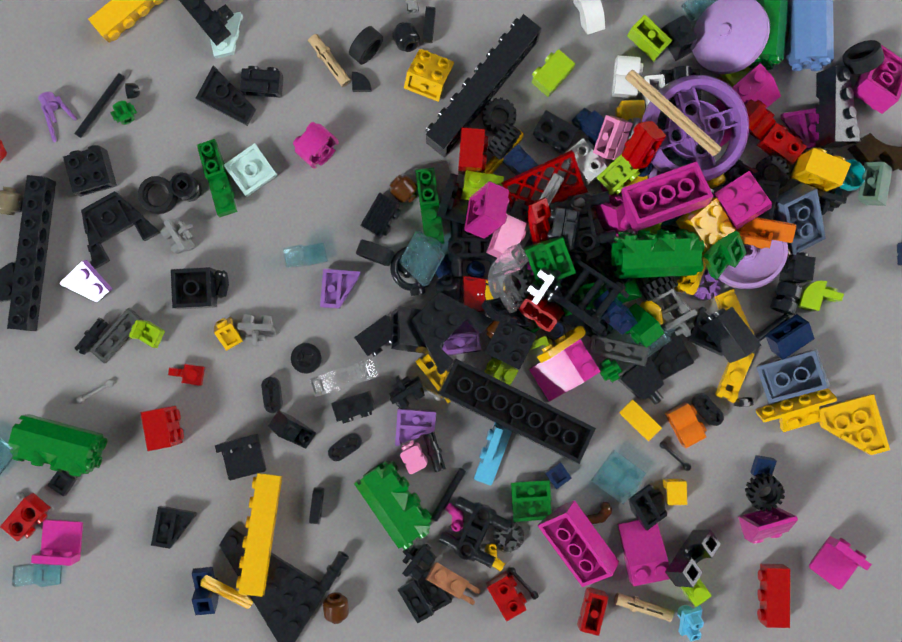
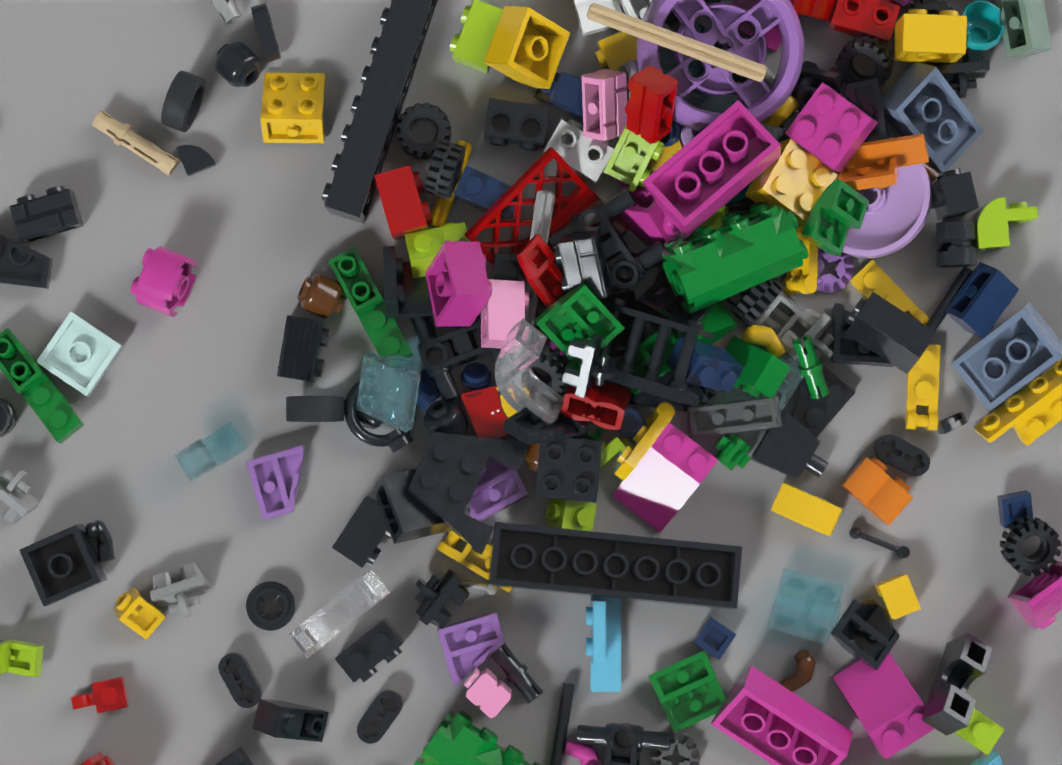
camera: 20 degrees left, 0 degrees up
(579, 87) = (527, 47): none -> yellow brick
(675, 337) = (810, 367): none -> green pin

